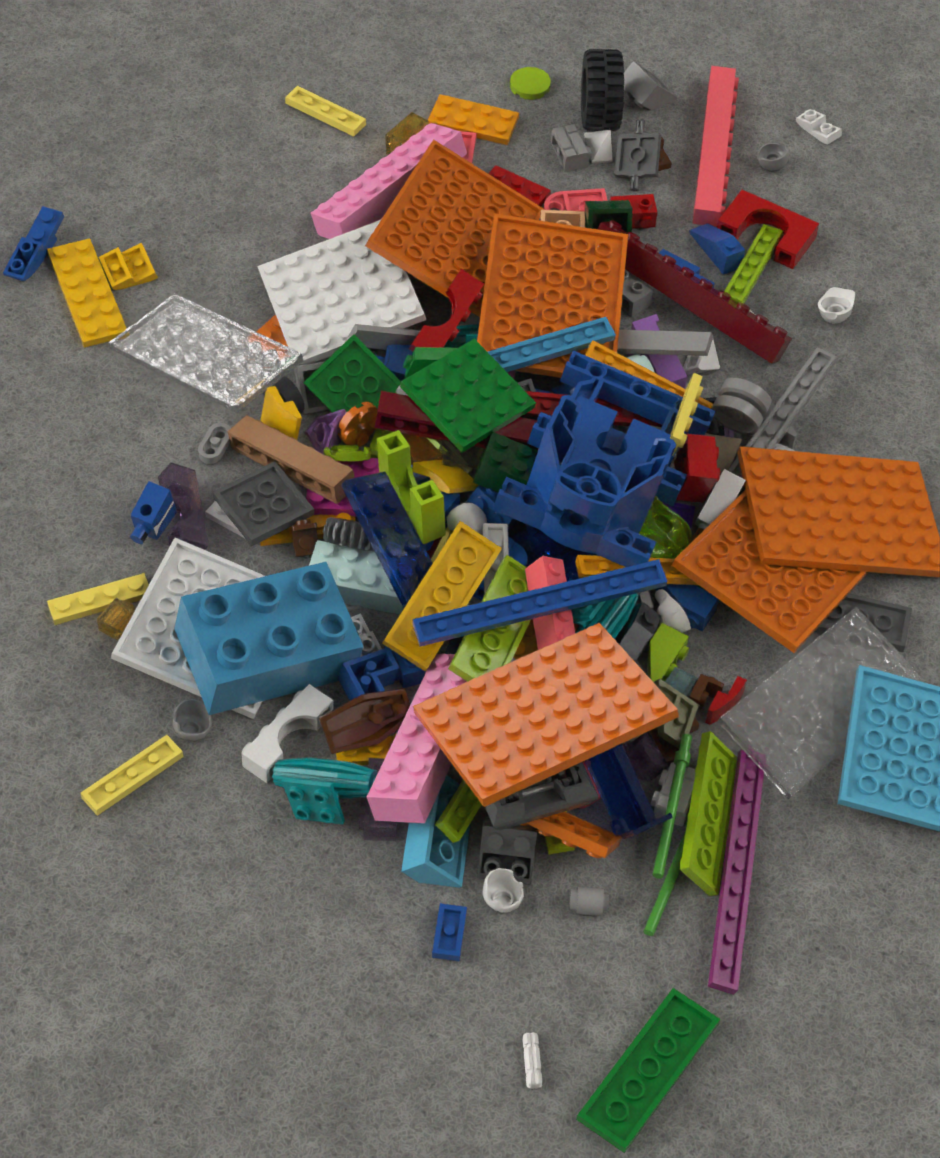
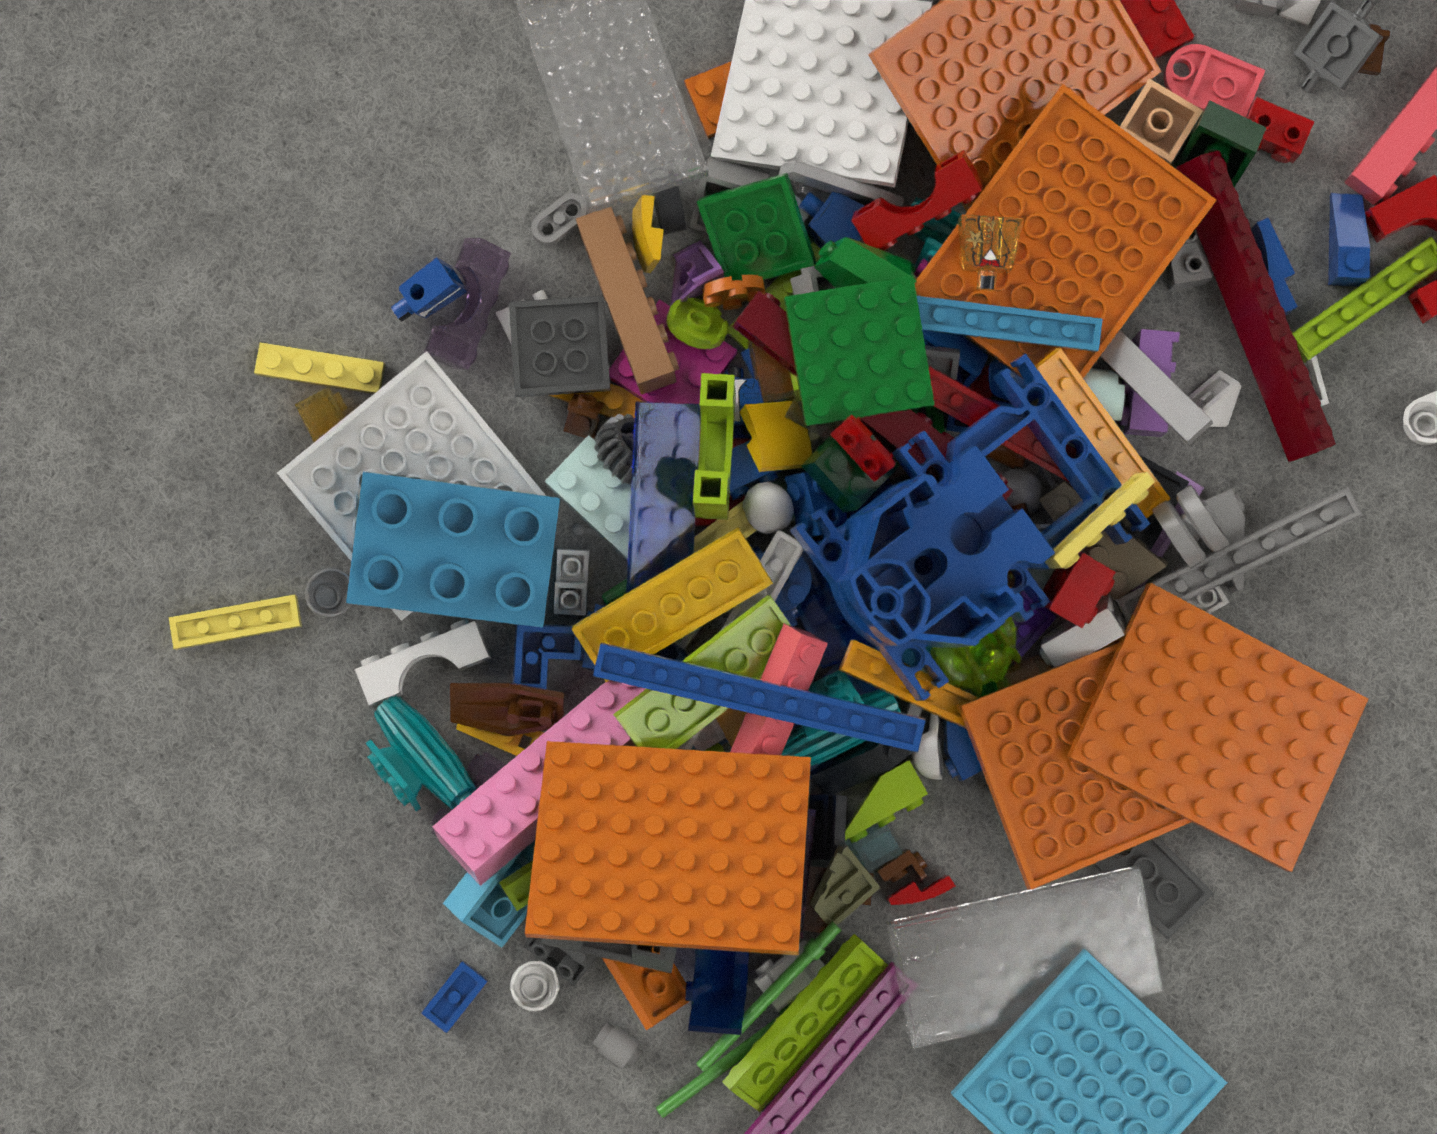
camera: 30 degrees right, 30 degrees up
(508, 308) = (988, 246): none -> clear yellow torso
(508, 439) = (868, 454): none -> red hinge

